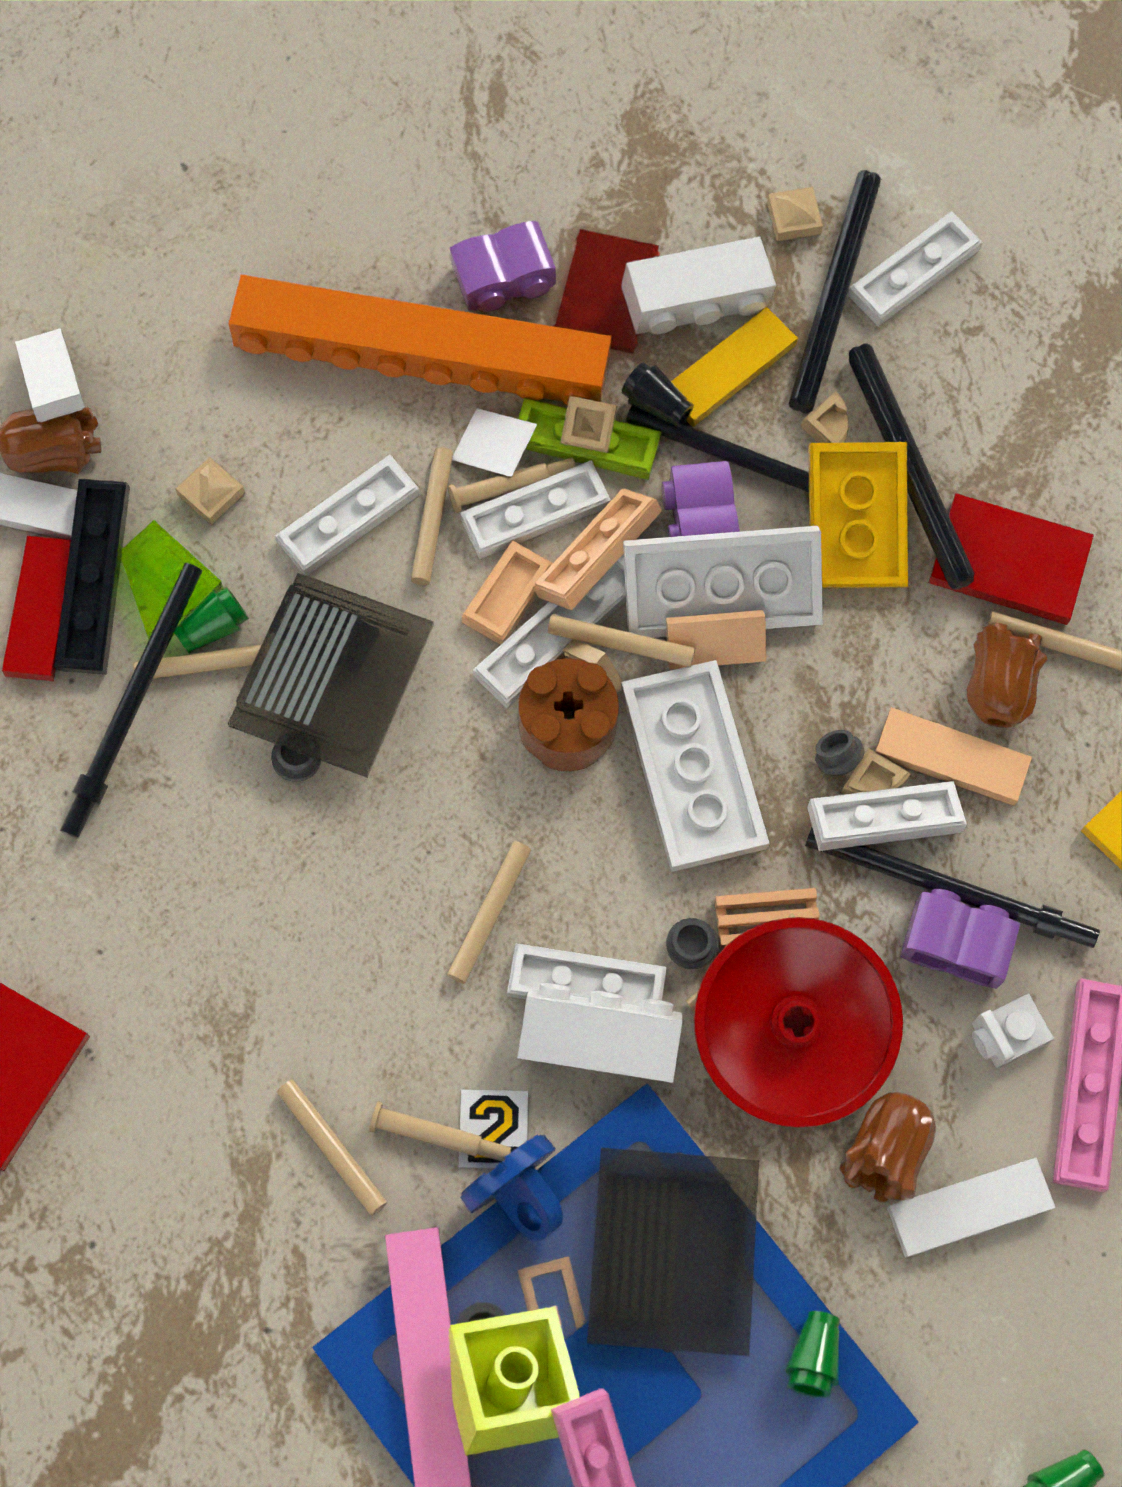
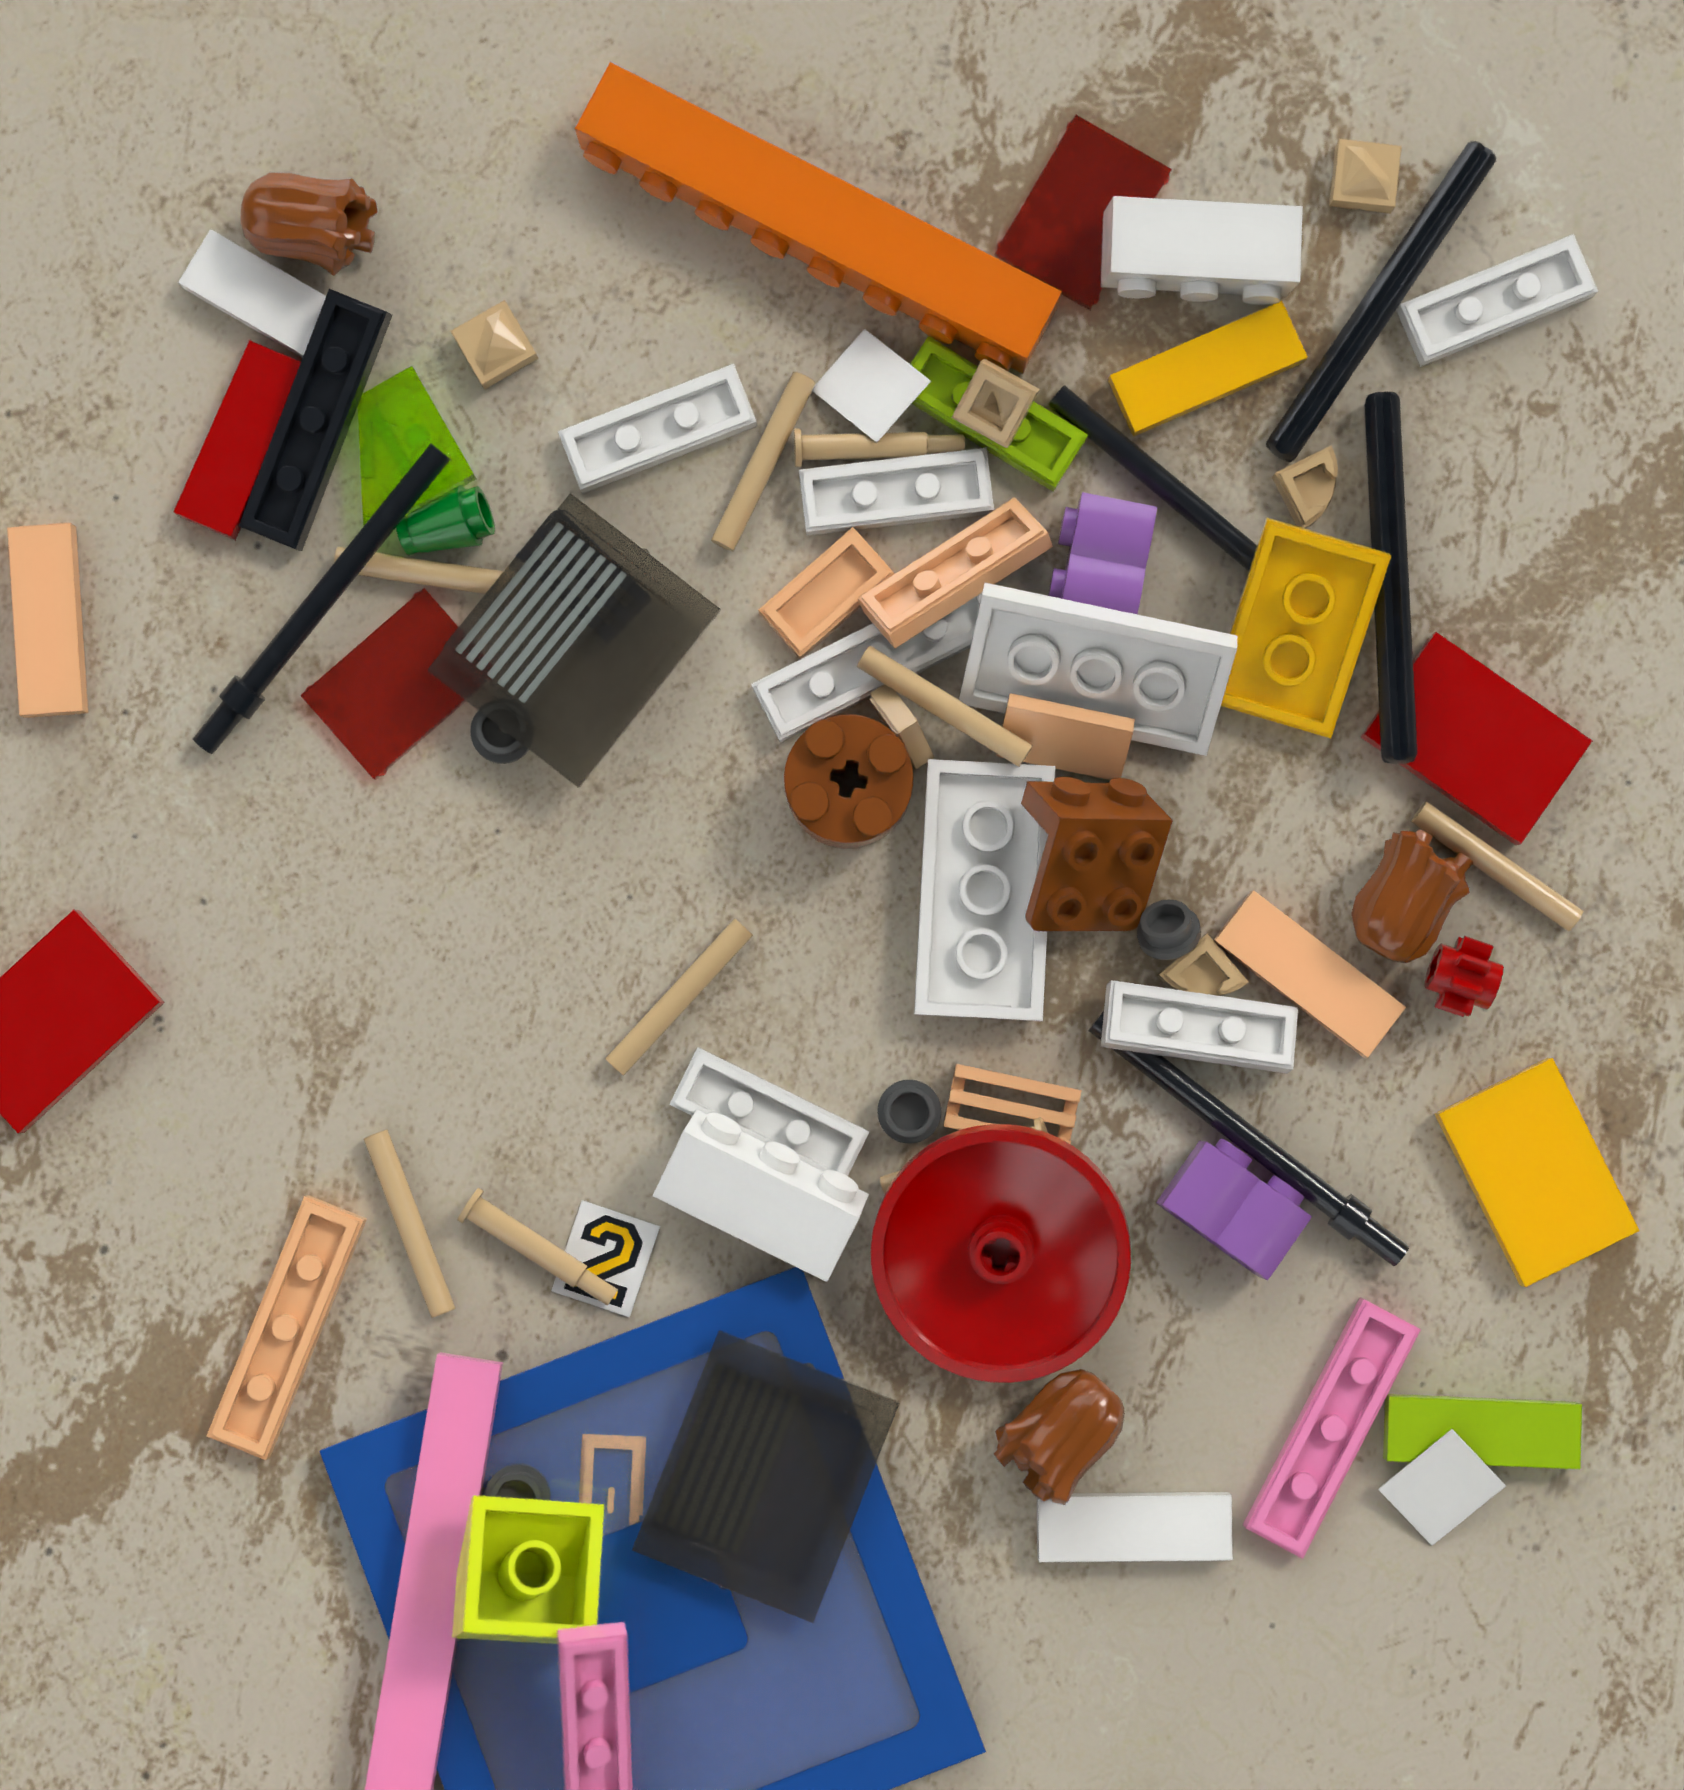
camera: 20 degrees right, 15 degrees up
(49, 375) = (328, 134): white tile -> none
(199, 752) = (381, 692): none -> clear red piece
(256, 1260) = (286, 1327): none -> light nougat tile
(503, 266) = (957, 143): medium lavender brick -> none
(517, 1187) = (606, 1351): blue tile -> none
(656, 395) = (1096, 388): black cone -> none
(769, 712) = (1096, 854): none -> dark orange bracket
(815, 1358) = (890, 1647): green cone -> none
(1010, 1031) = (1256, 1336): white bracket -> none
(1065, 720) = (1464, 976): none -> red gear

